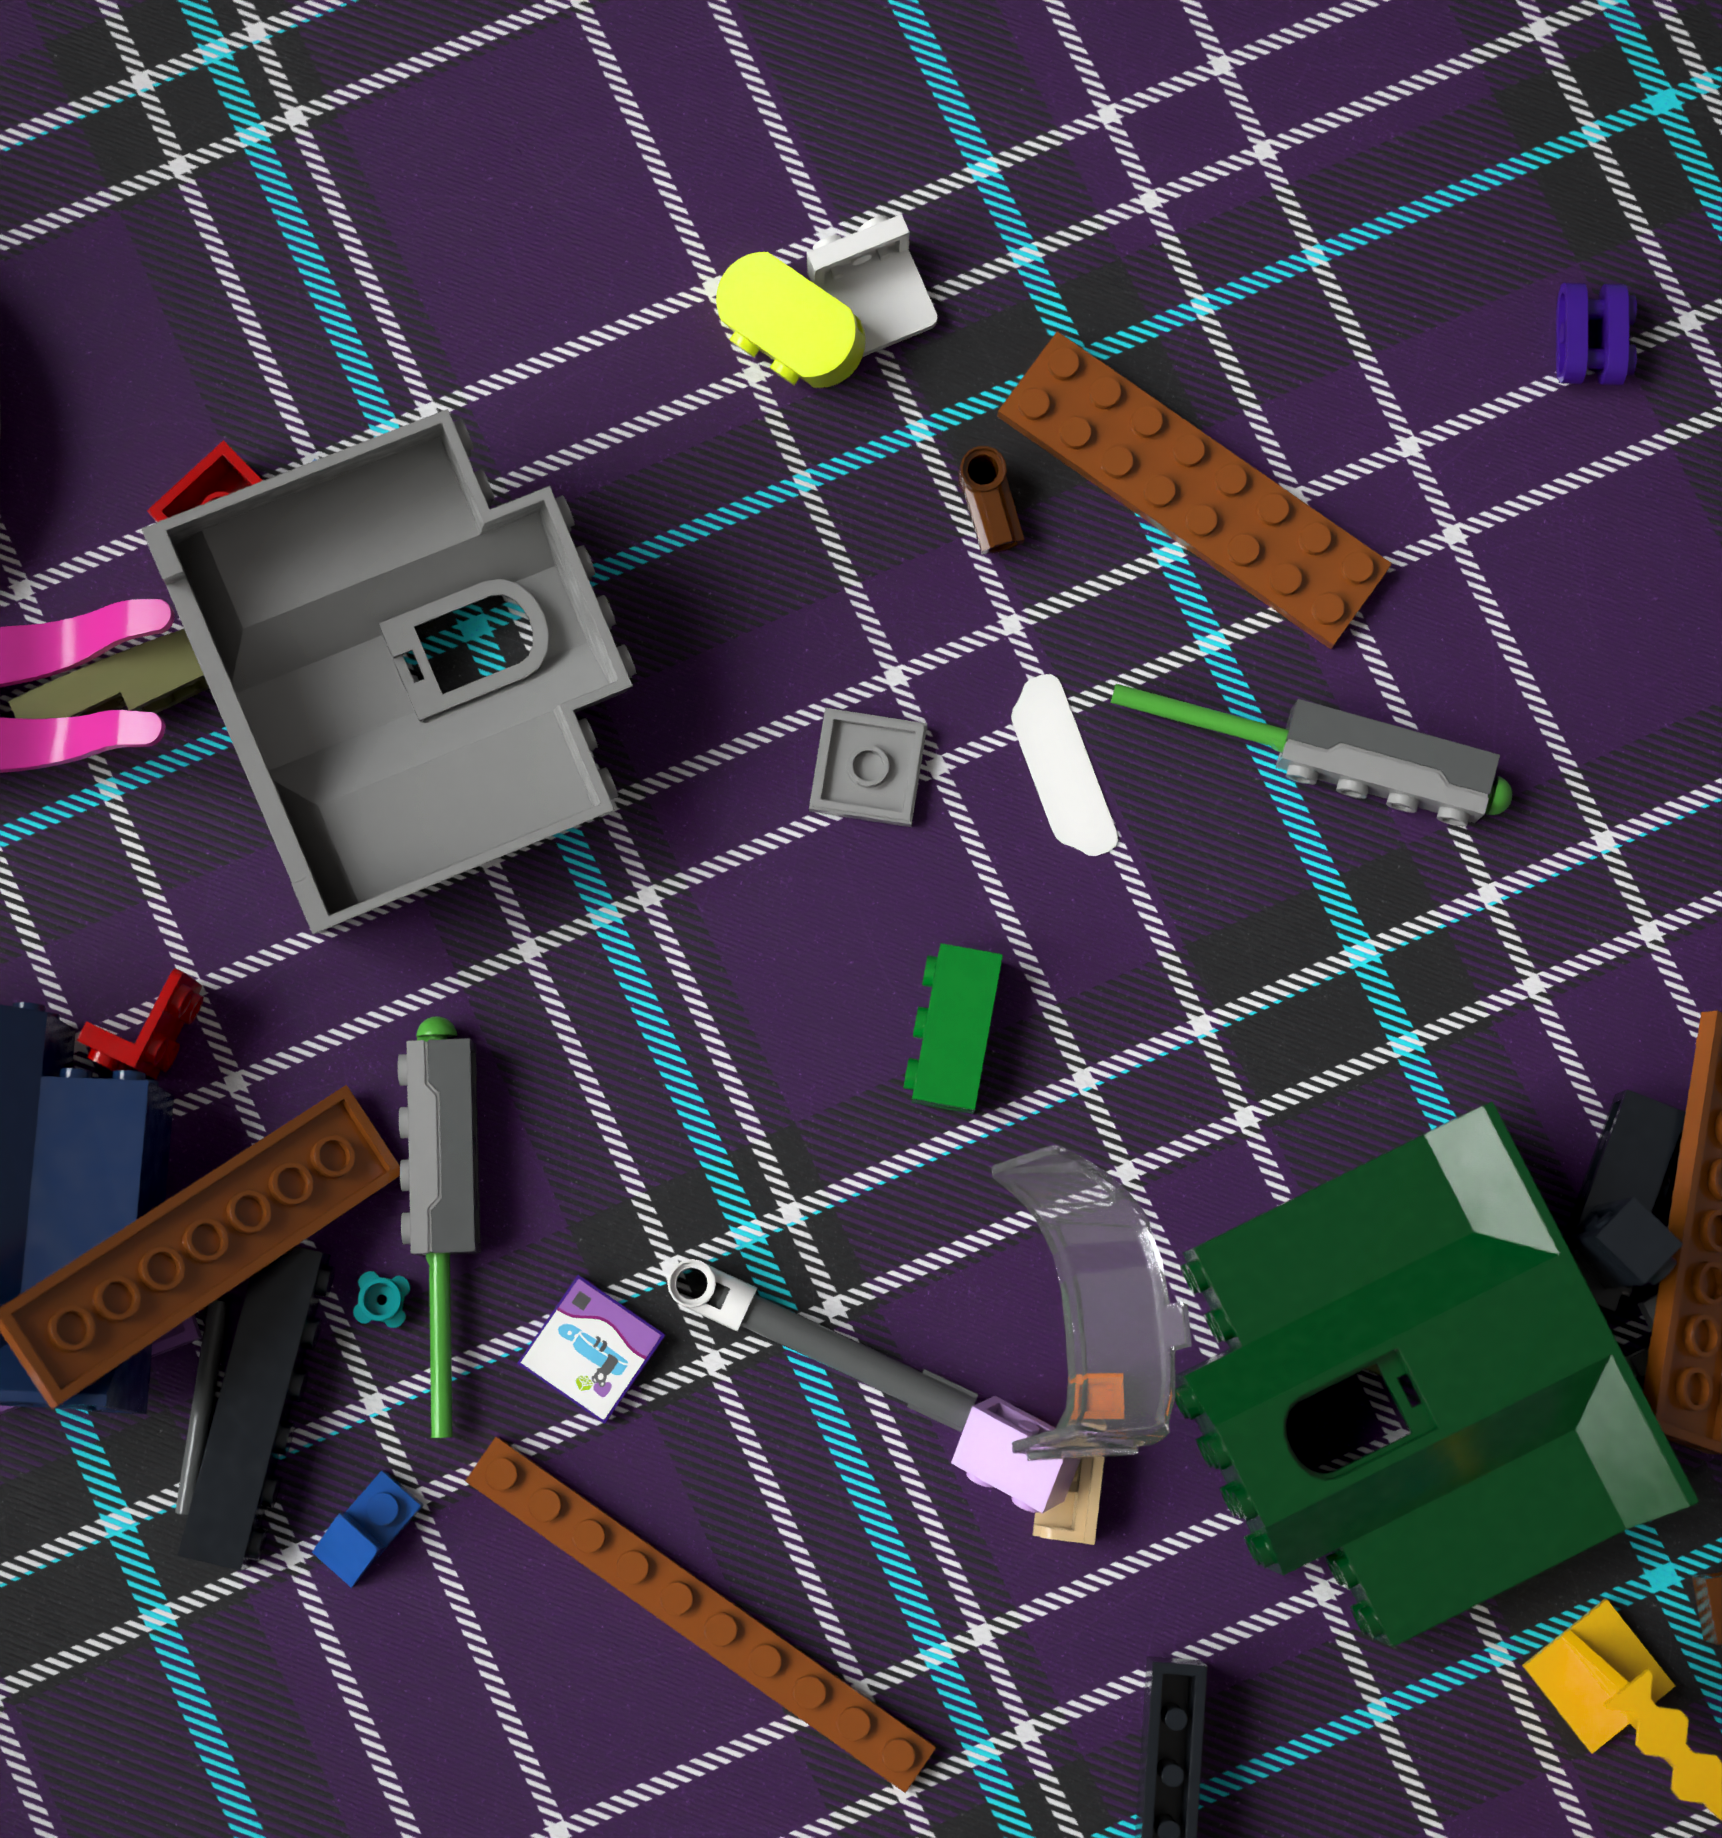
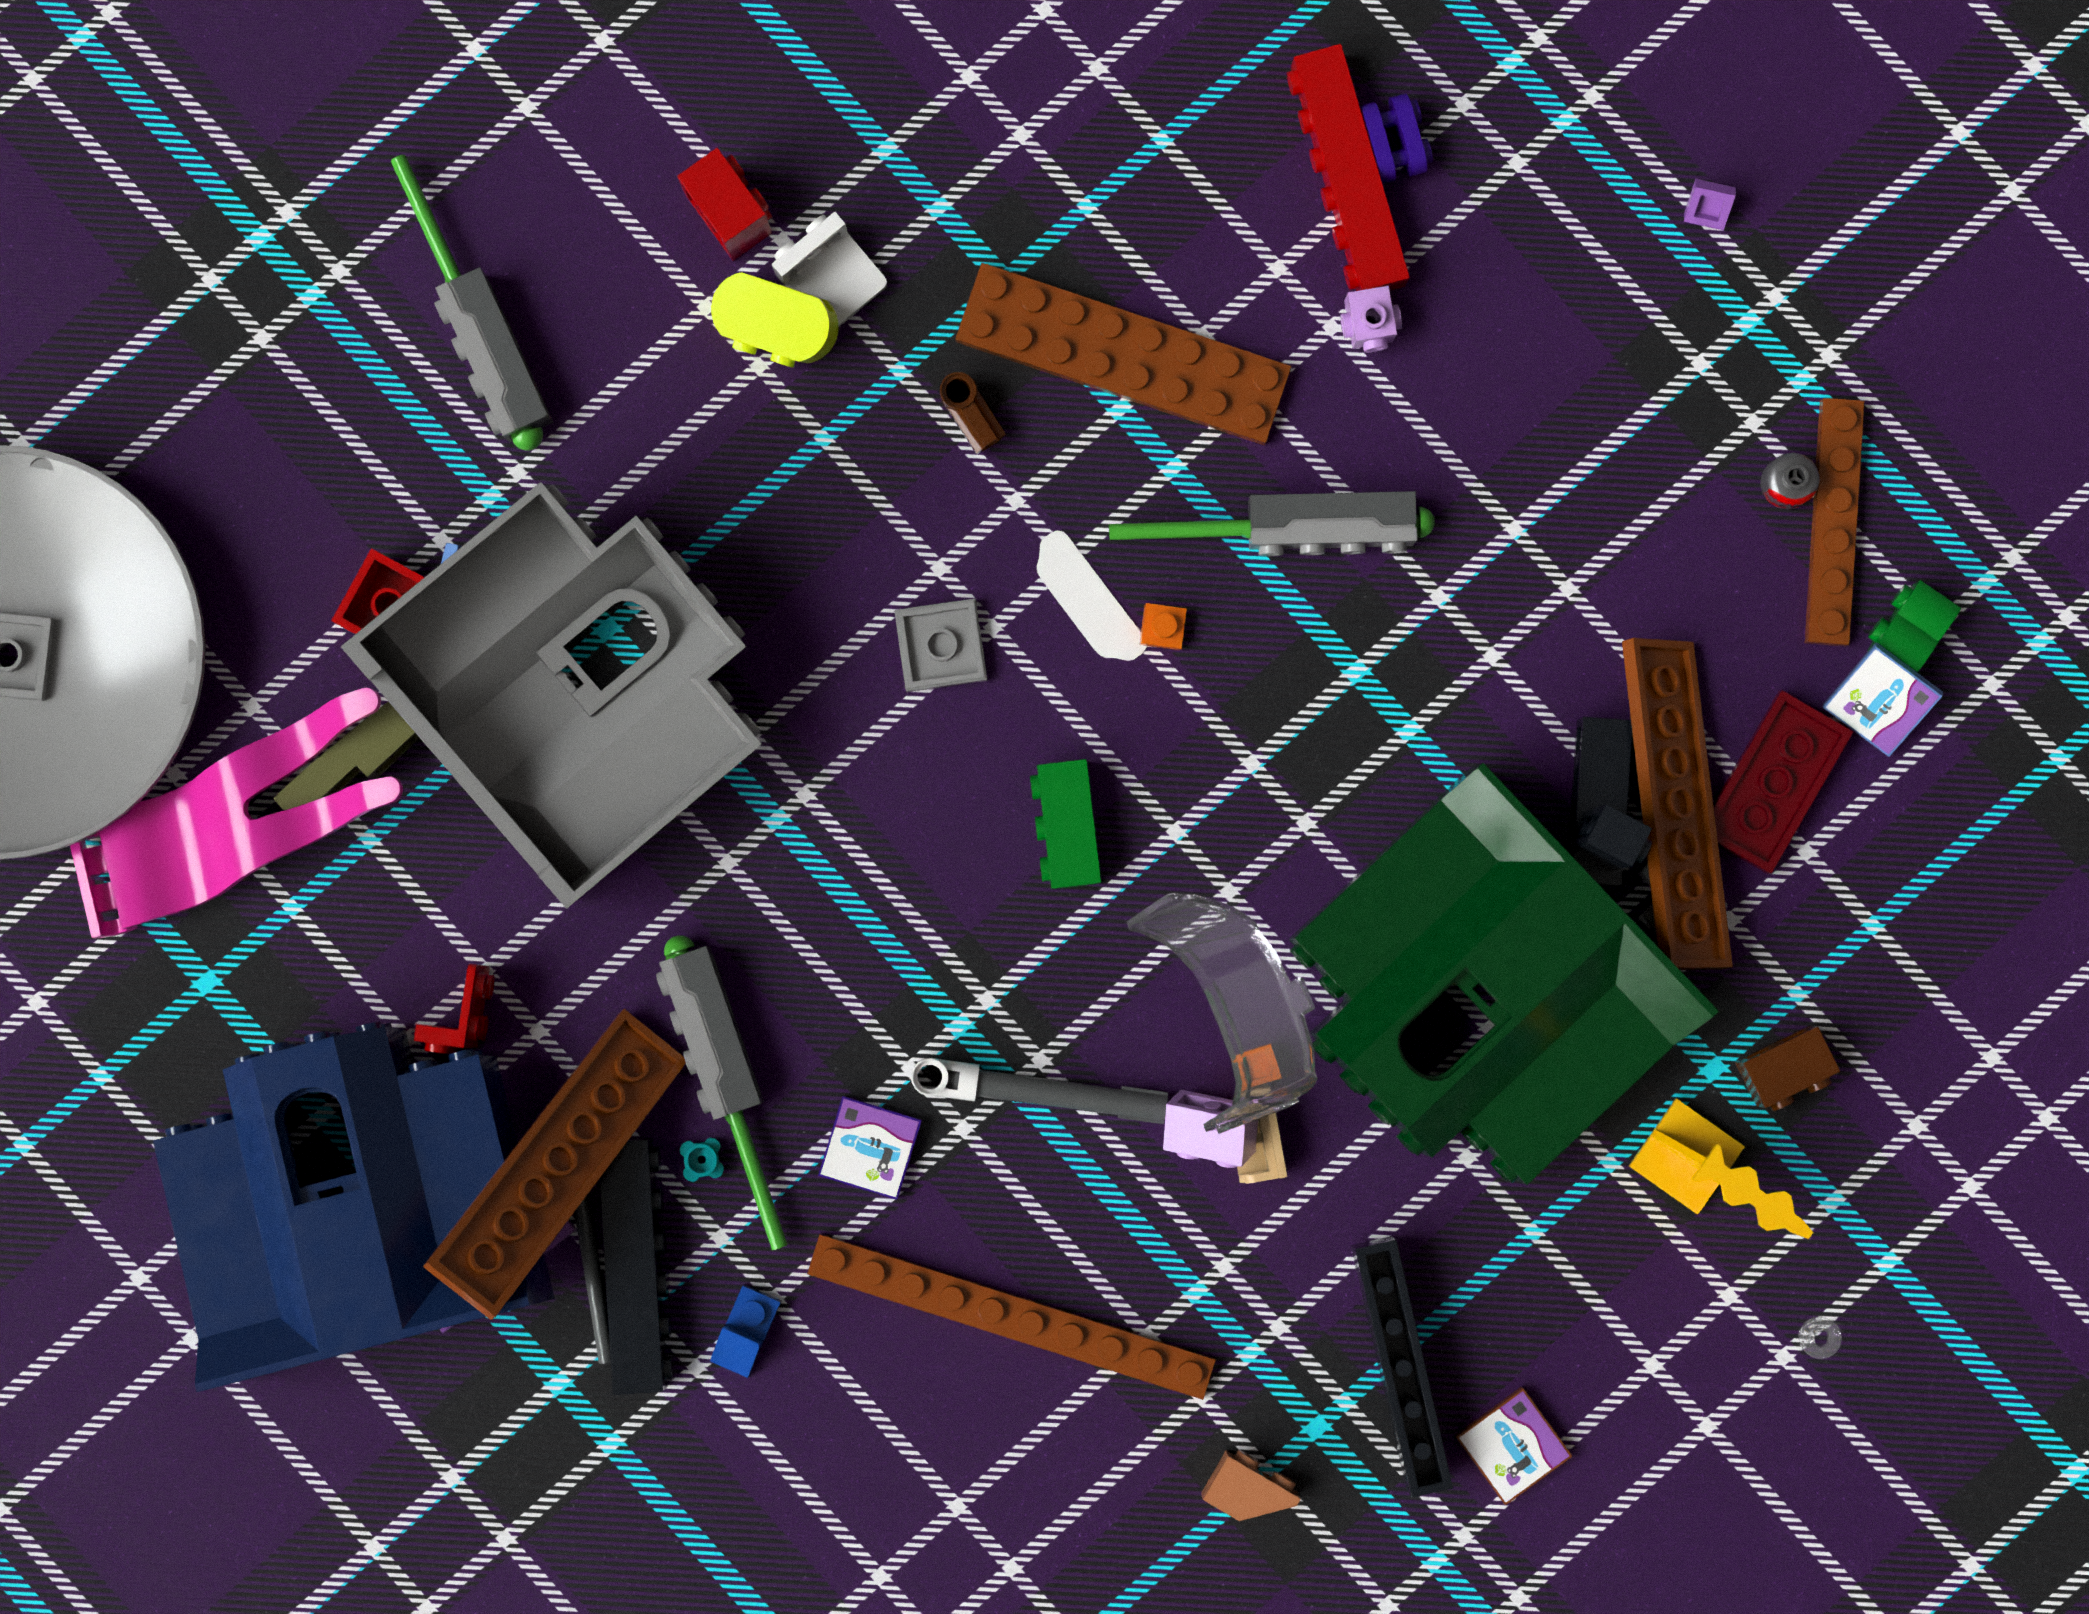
camera: 15 degrees left, 5 degrees up
(438, 236) = (481, 334): none -> piece
(776, 168) = (725, 204): none -> red brick
(1143, 826) = (1163, 626): none -> orange plate
(1505, 535) = (1372, 305): none -> lavender brick
(1529, 357) = (1348, 170): none -> red brick

